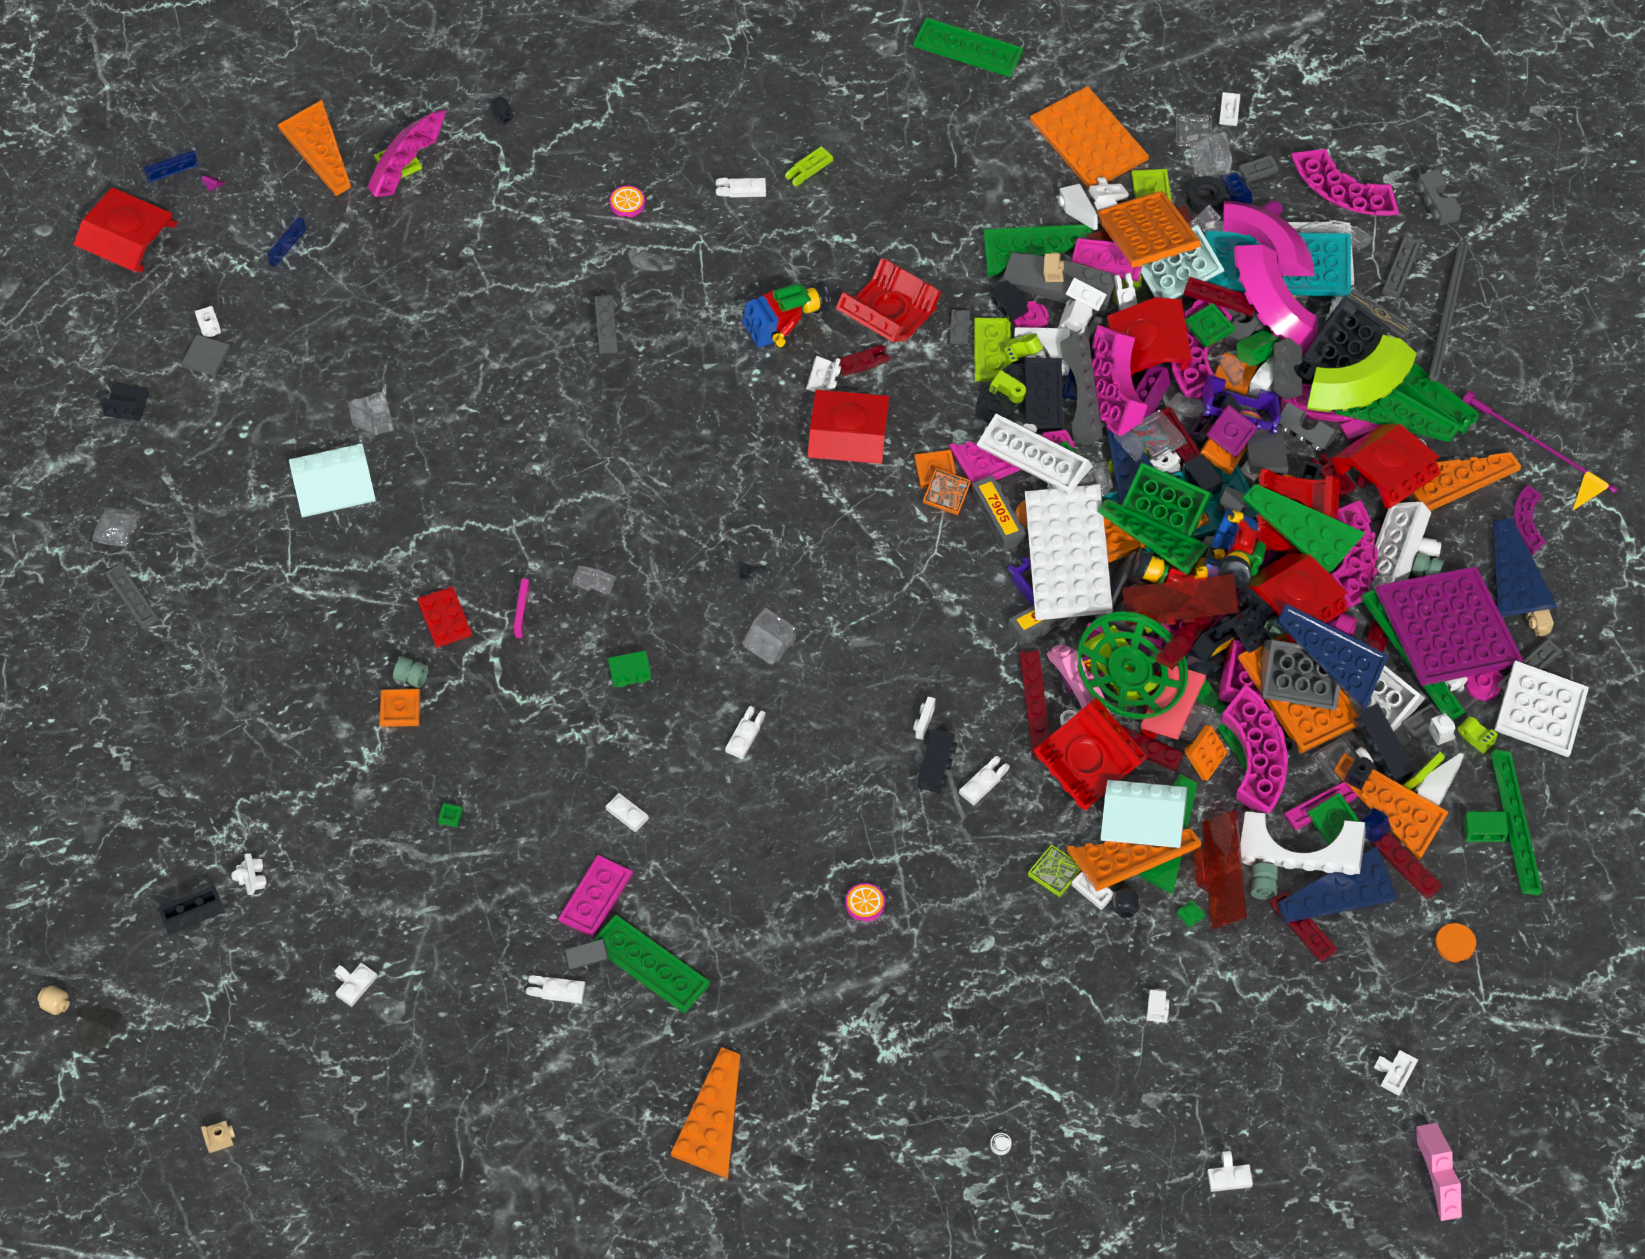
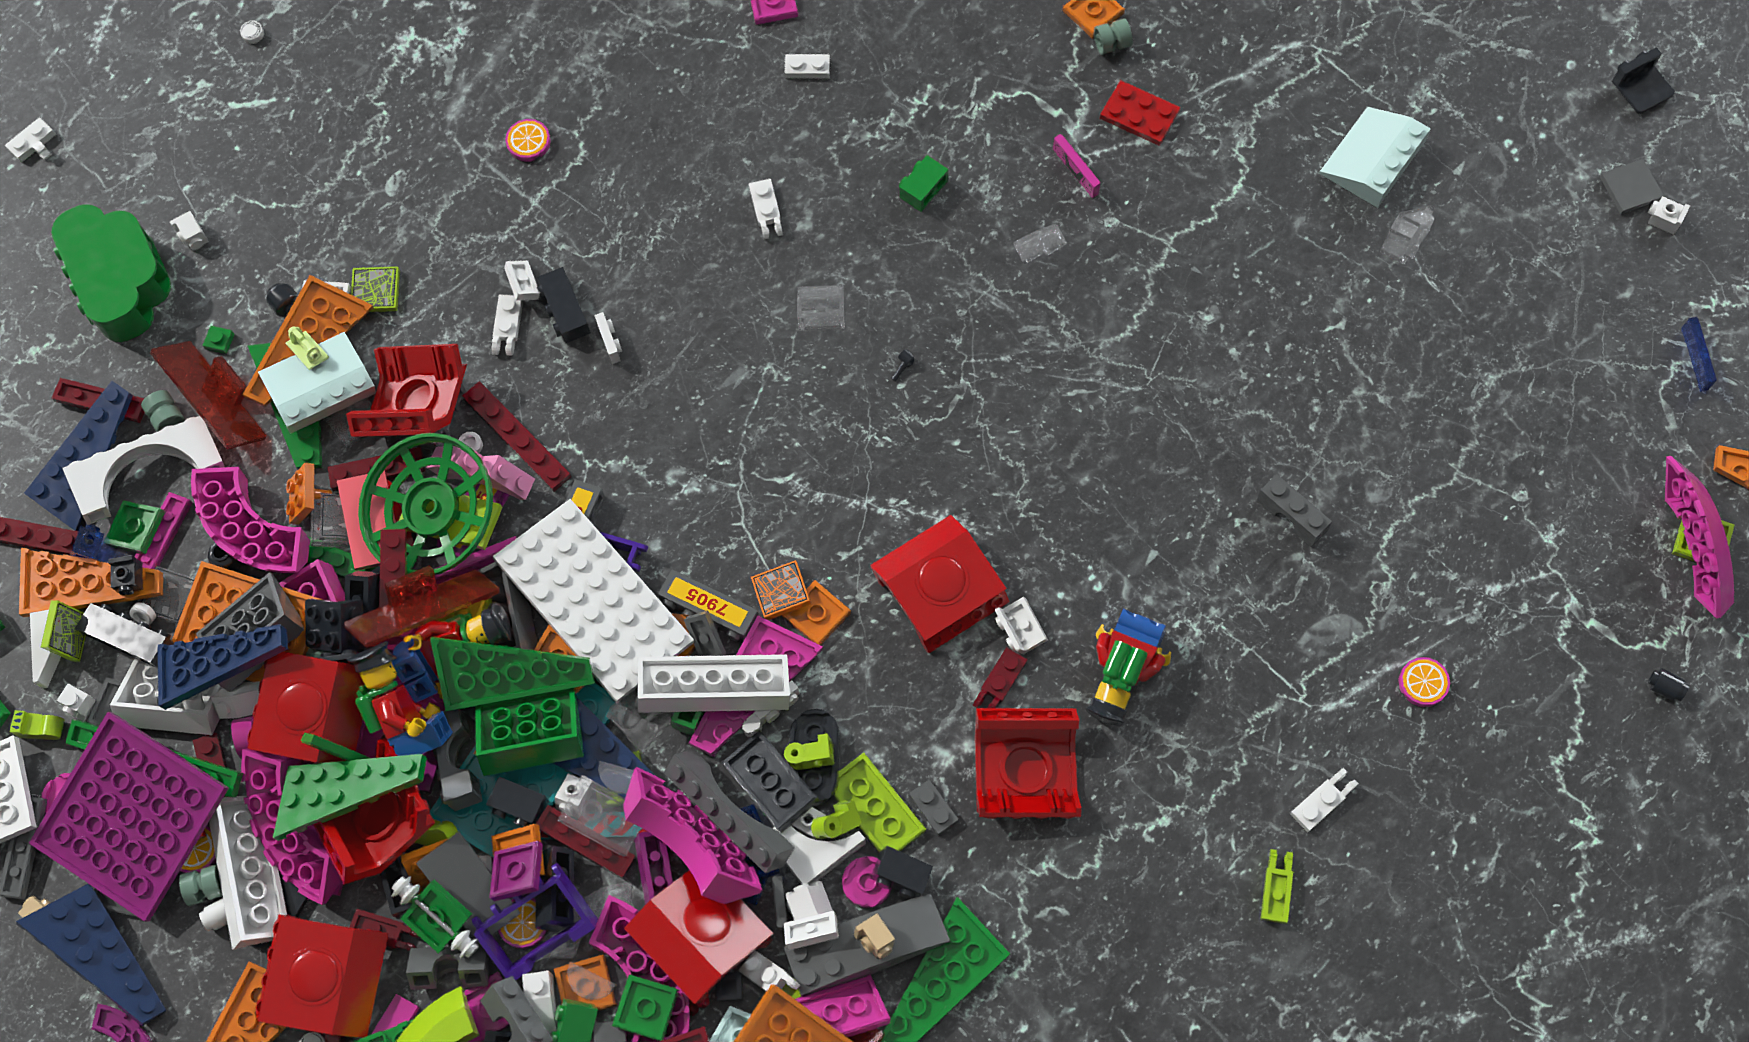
camera: 145 degrees right, 10 degrees up
(951, 797) = (521, 280): none -> white plate
(1015, 492) = (704, 634): none -> dark grey plate
(1136, 832) = (305, 348): none -> yellowish green hinge
(1234, 1007) = (111, 269): none -> green brick
(1291, 549) = (331, 748): none -> green tile
(1296, 441) = (435, 916): none -> green plate

